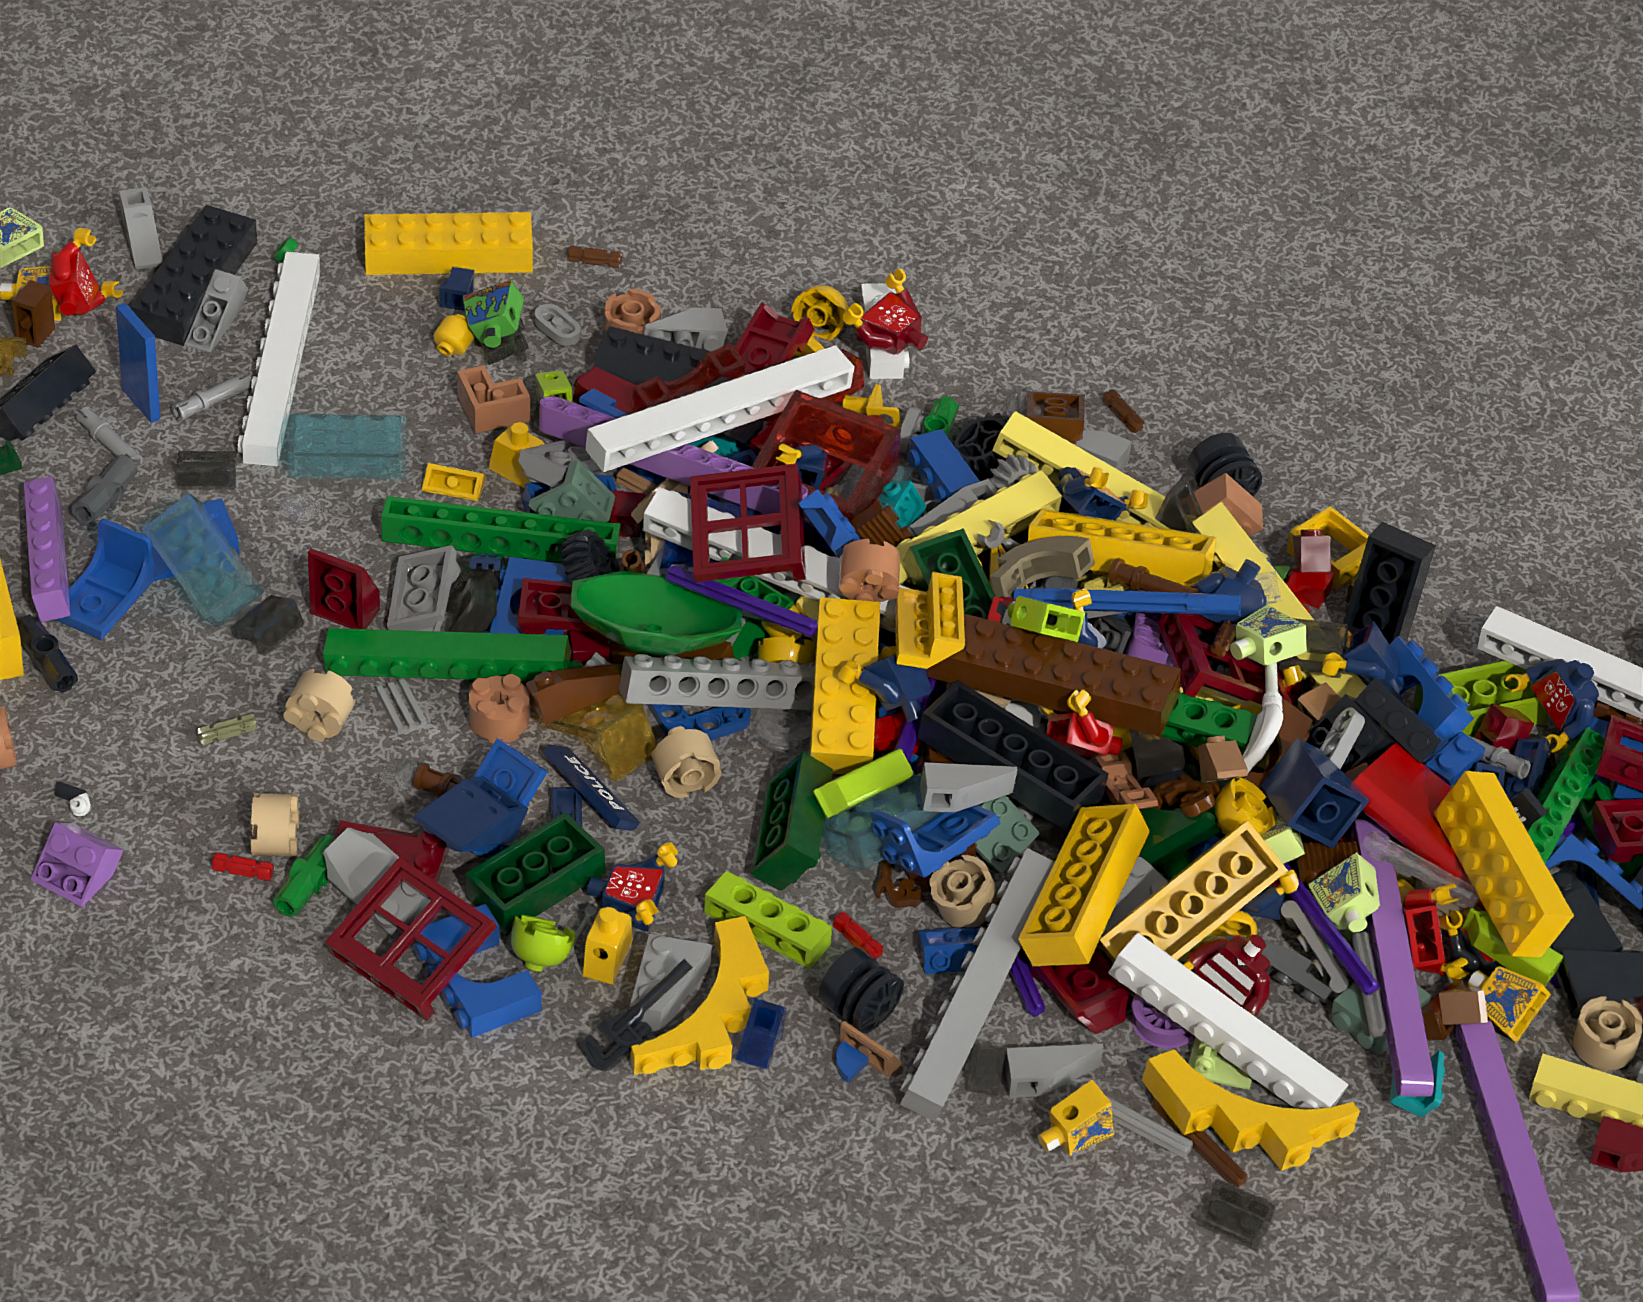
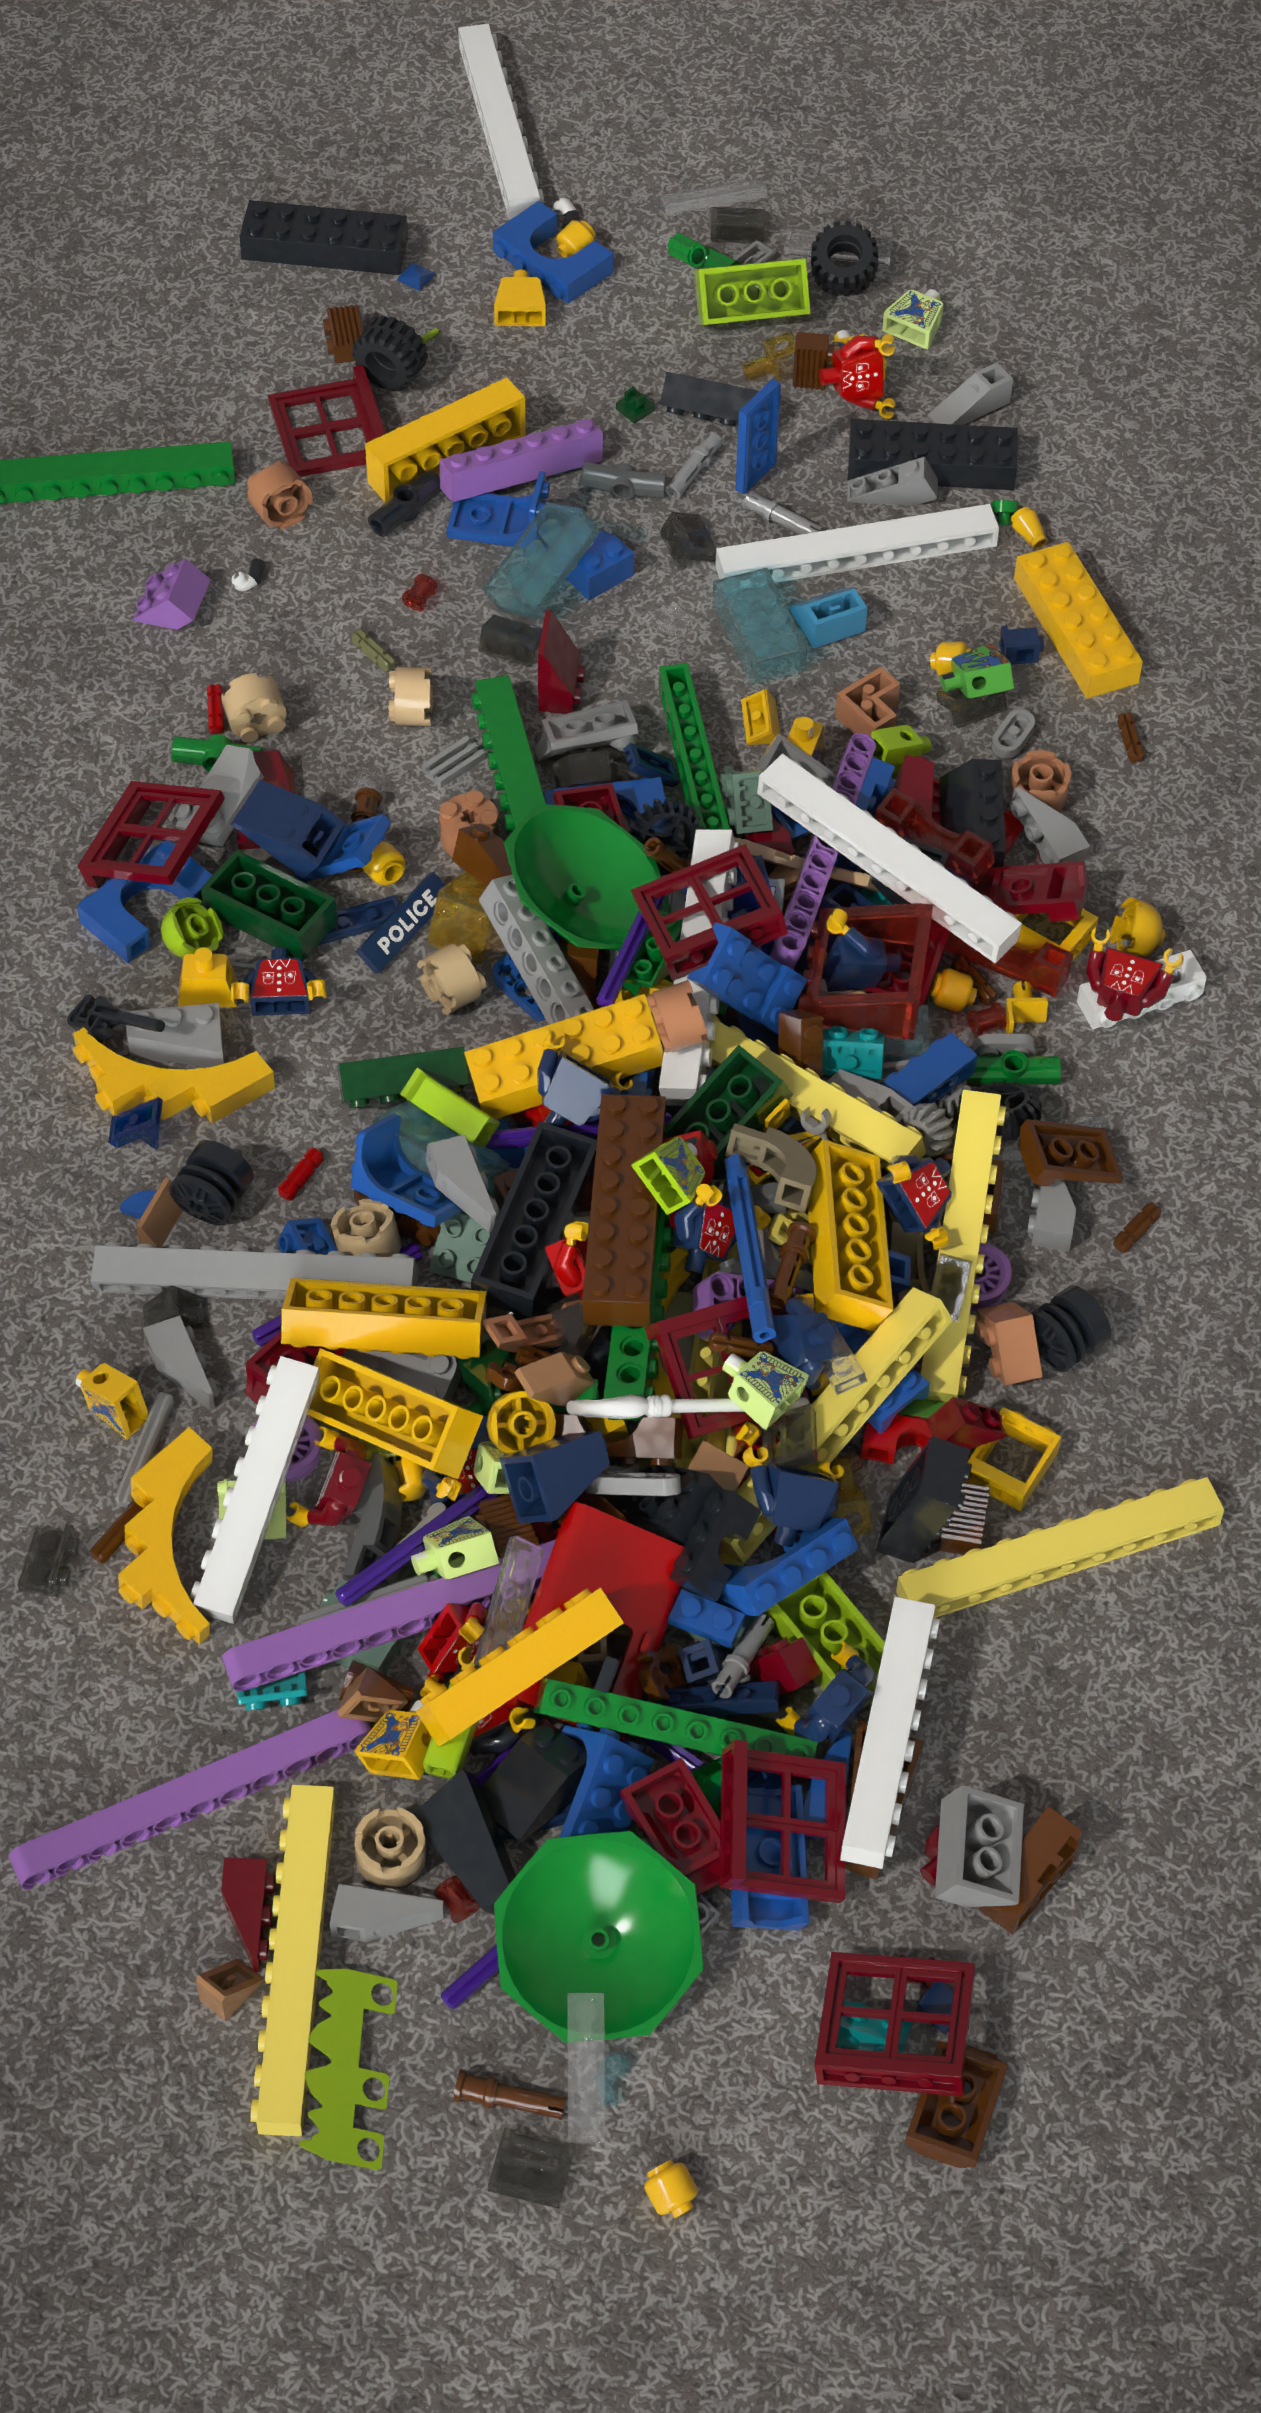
camera: 75 degrees right, 10 degrees up
(171, 674) = (423, 588): none -> clear red bush
(317, 242) = (1029, 527): none -> yellow cone
(356, 390) = (831, 616): none -> dark azure slope
(772, 920) = (297, 1056): lime brick -> none
(930, 622) = (632, 1079): yellow slope -> none
(1425, 518) = (1064, 1548): none -> light yellow brick

